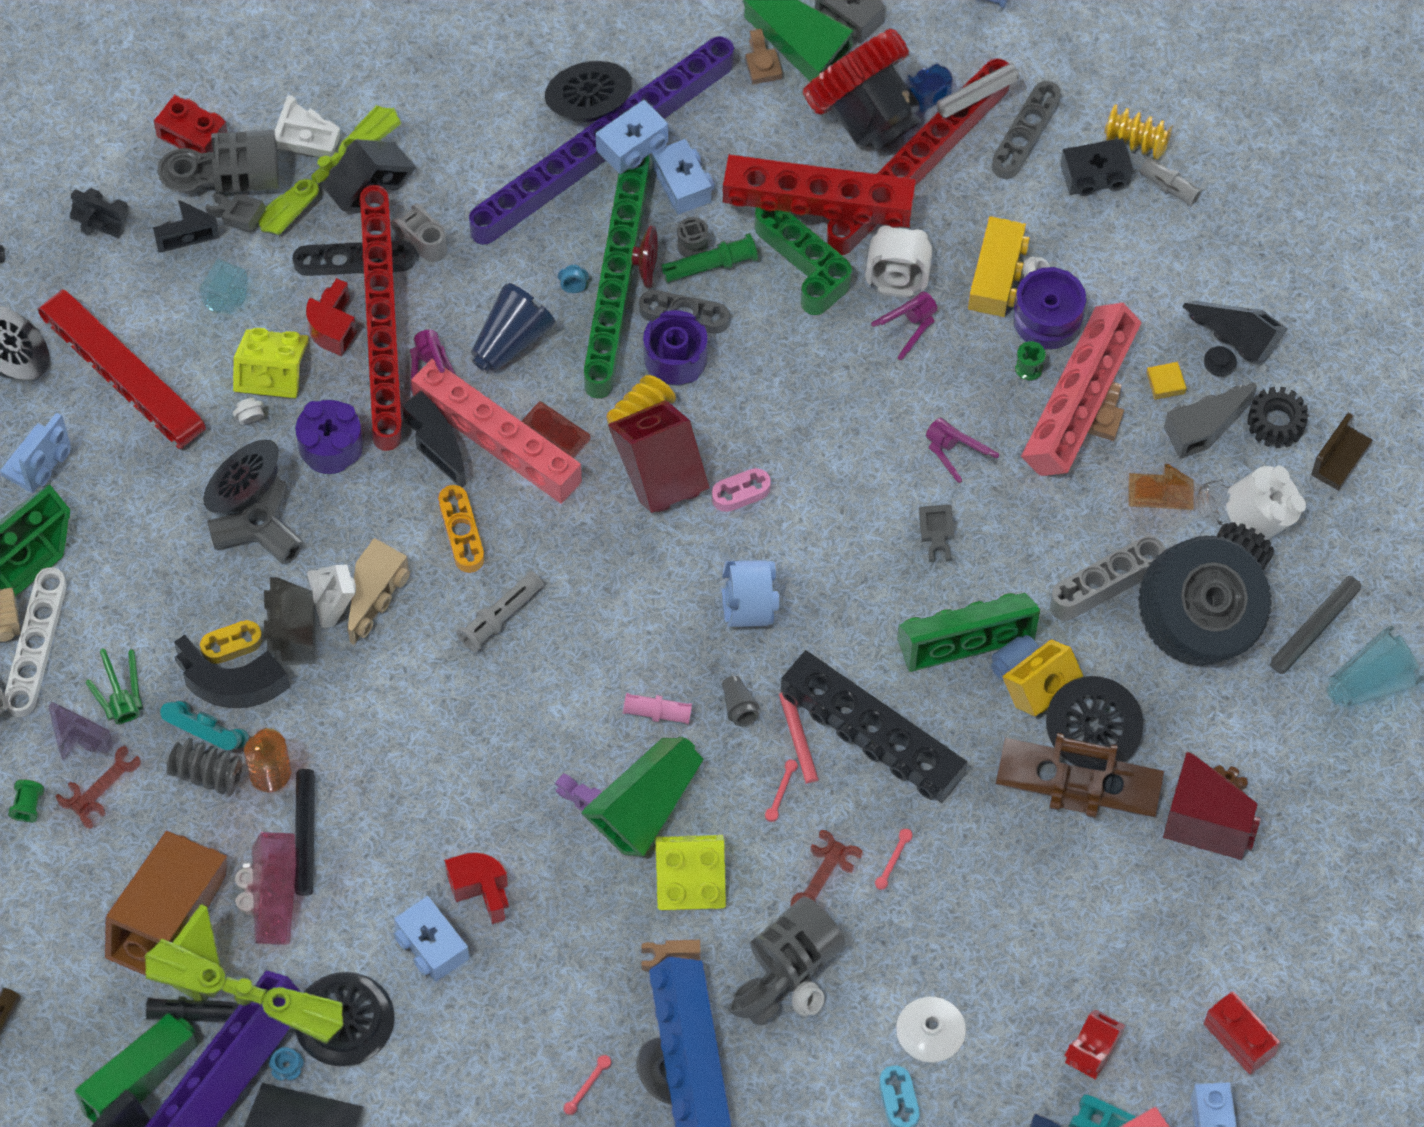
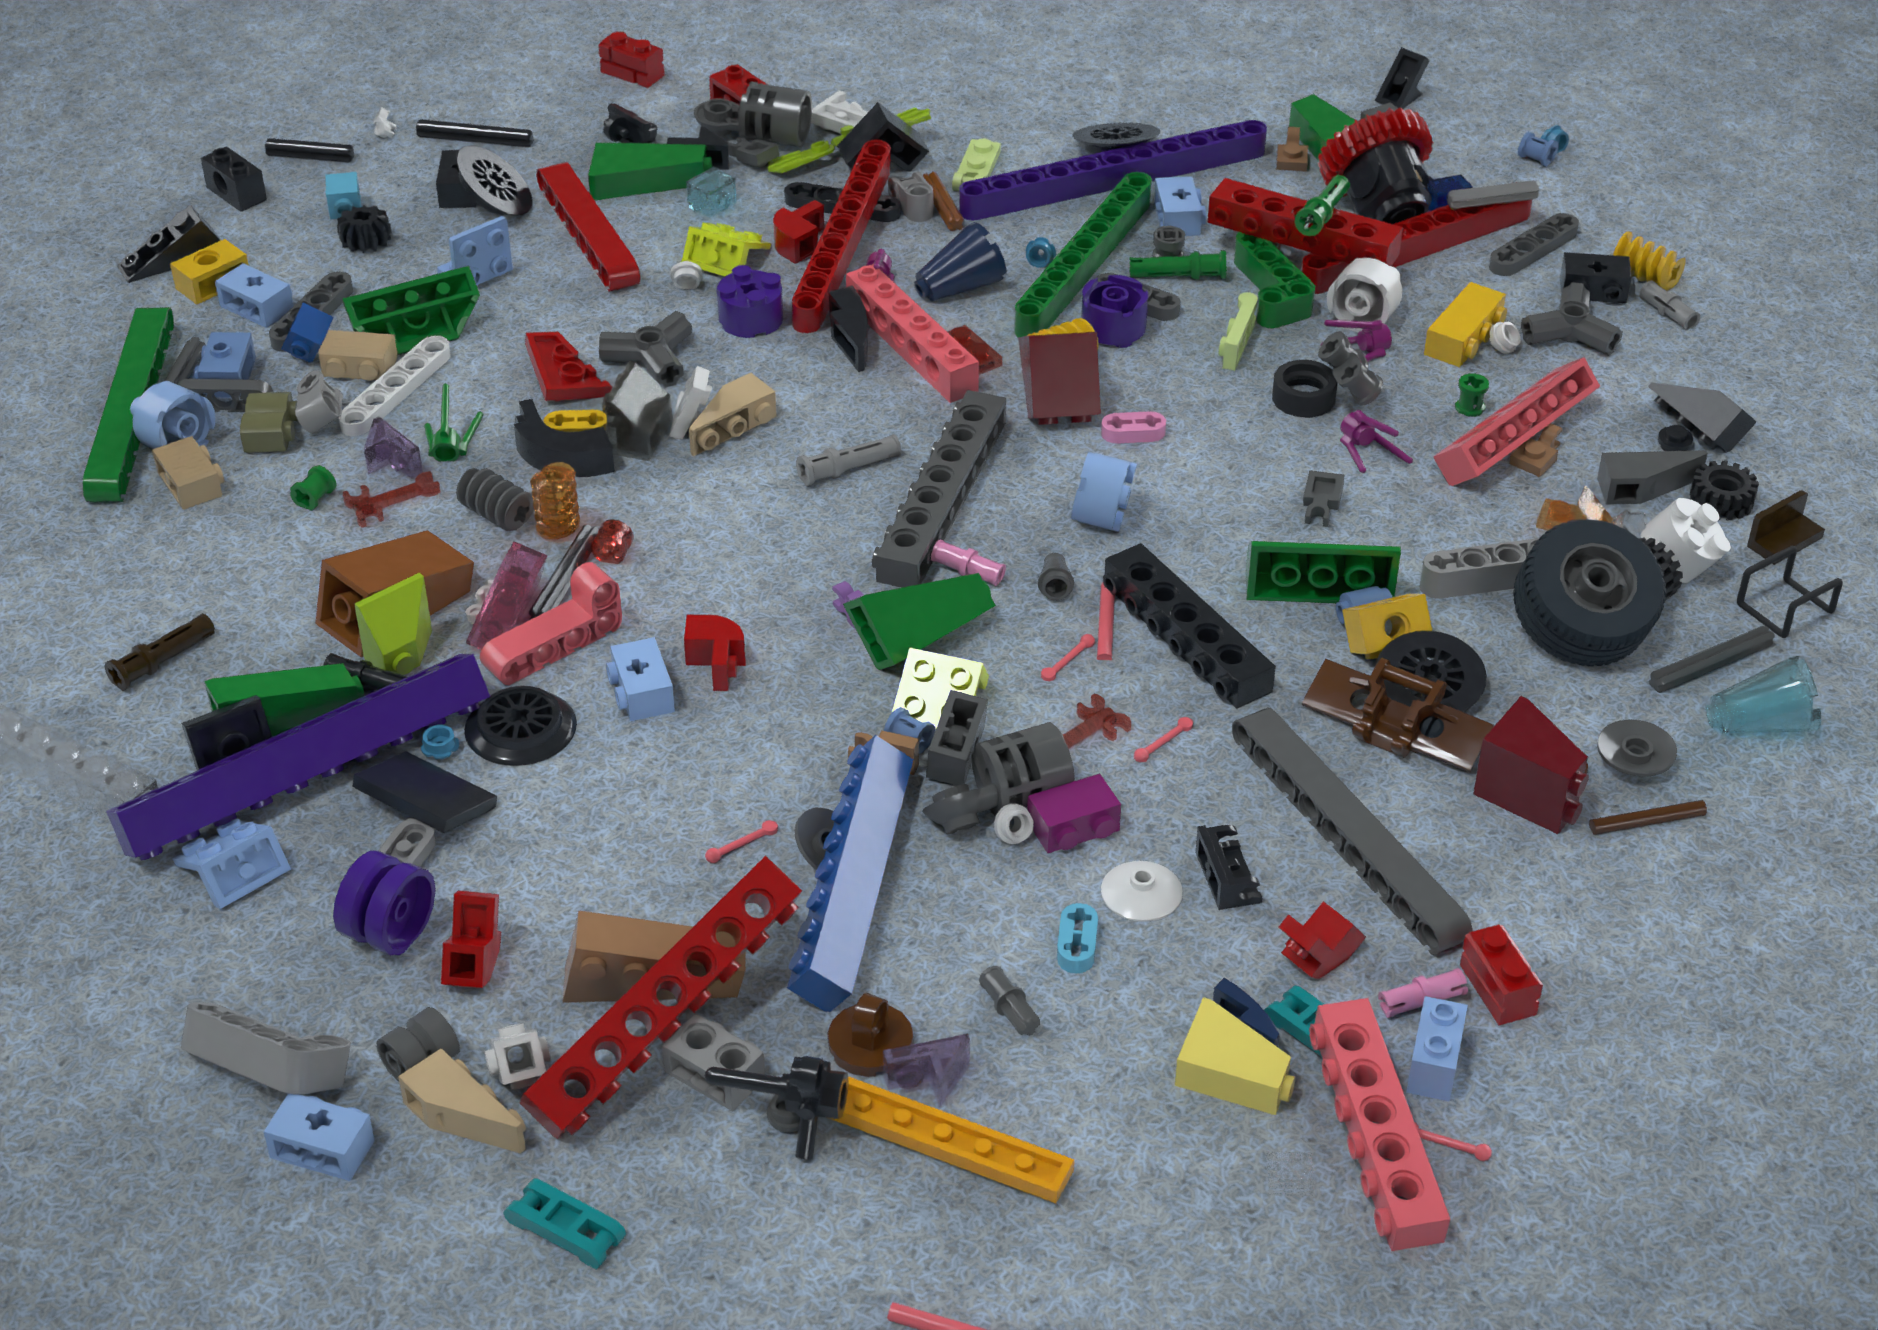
camera: 20 degrees right, 20 degrees down
(57, 109) = (631, 59): none -> red brick
(143, 270) = (643, 168): none -> green slope
(184, 575) = (560, 370): none -> red wing
(203, 726) = (502, 464): teal plate -> none
(242, 477) = (653, 311): black piece -> none
(302, 1011) = (471, 685): lime piece -> none
(330, 911) = (556, 633): none -> coral beam
(333, 783) = (612, 541): none -> clear red wheel
(453, 230) = (944, 203): none -> dark orange axle
(464, 165) = (977, 161): none -> yellowish green plate
(464, 516) = (837, 387): light orange beam -> none
(606, 520) = (940, 489): none -> dark grey brick
(632, 137) = (1139, 157): light blue brick -> none
(646, 256) = (1118, 242): dark red dish -> none
(674, 922) = (903, 724): none -> medium blue bush
(730, 927) = (956, 737): none -> dark grey brick
(795, 335) = (1238, 331): none -> yellowish green plate
(835, 185) = (1320, 208): none -> green pin
(853, 972) = (1074, 813): none -> magenta brick
(878, 416) = (1300, 402): none -> black tyre
(922, 377) = (1350, 368): none -> dark grey axle
(993, 988) = (1226, 868): none -> black hinge
(1049, 307) = (1508, 355): dark purple wheel -> none
(1079, 243) = (1572, 323): none -> dark grey piece
(1080, 913) = (1353, 830): none -> dark grey beam
(1166, 380) = (1611, 440): yellow tile -> none
(1186, 1067) = (1412, 995): none -> bright pink pin
(1286, 739) = (1637, 748): none -> dark grey dish
(1308, 820) = (1647, 817): none -> reddish brown bar
(1352, 500) = (1807, 595): none -> black piece

